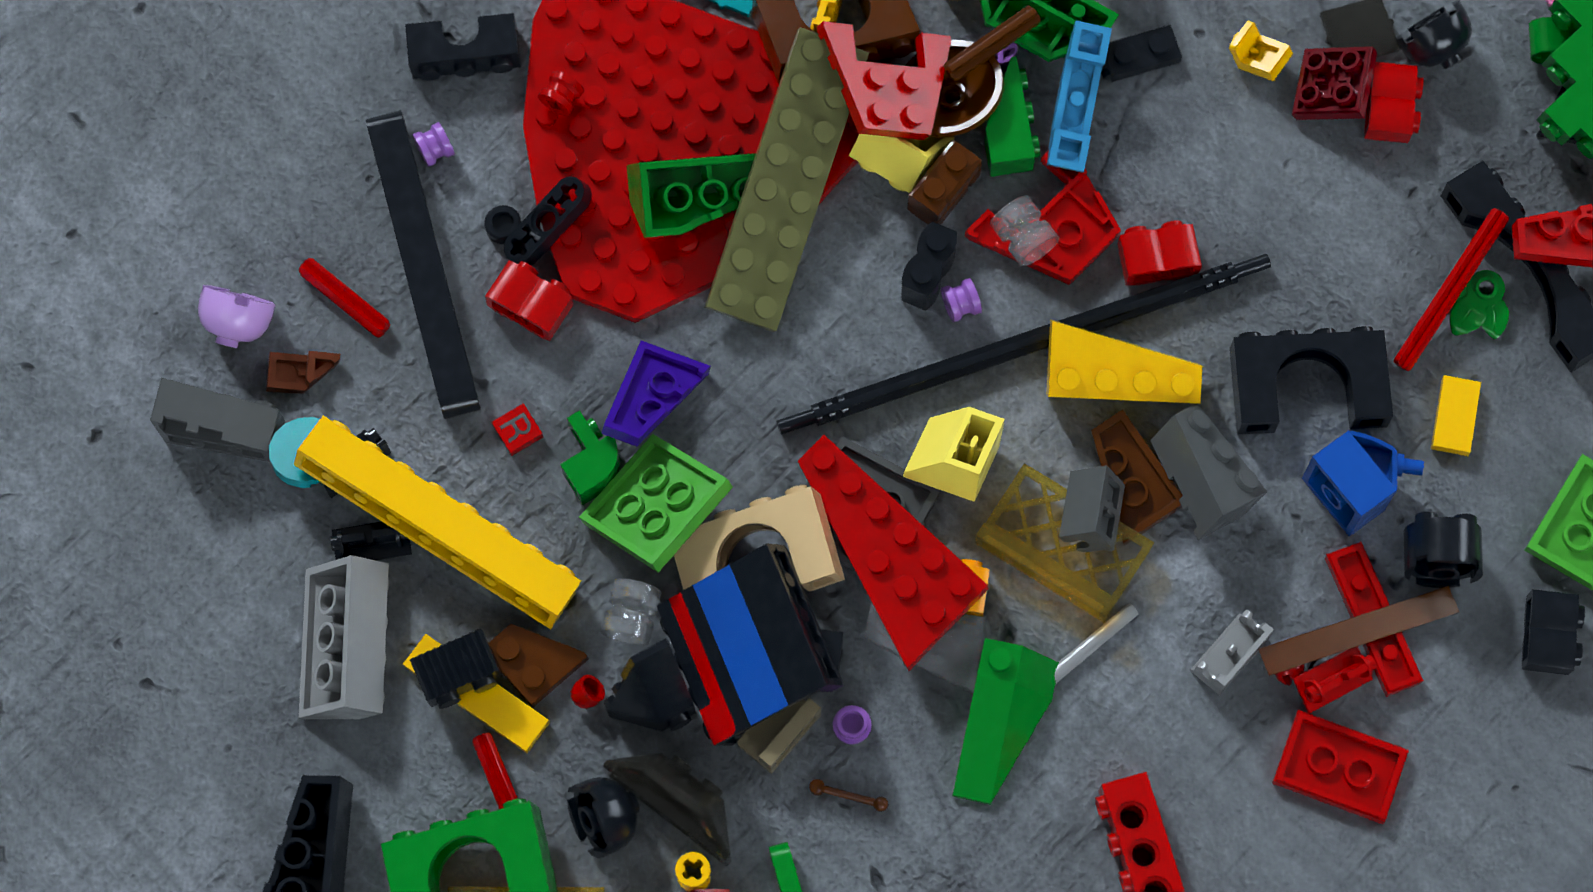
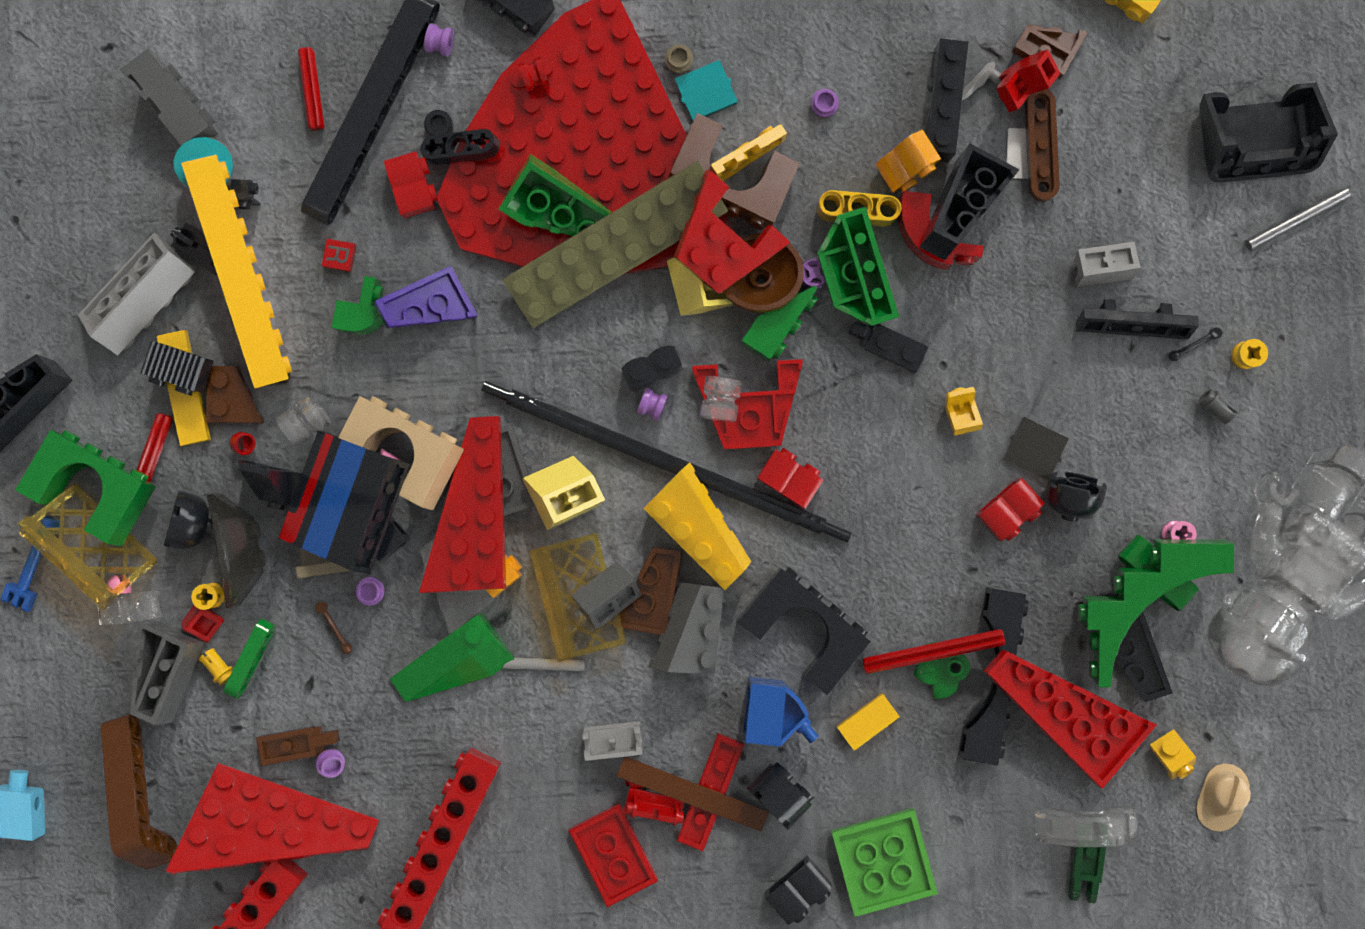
camera: 40 degrees right, 15 degrees up
(233, 315) = (235, 44): lavender cylinder -> none
(298, 372) = (247, 109): copper slope -> none
(655, 502) = (369, 370): bright green plate -> none
(944, 184) = (706, 327): reddish brown brick -> none
(992, 43) = (807, 269): reddish brown axle -> none
(1077, 96) = (827, 346): dark azure slope -> none
(1334, 83) = (987, 469): dark red tile -> none

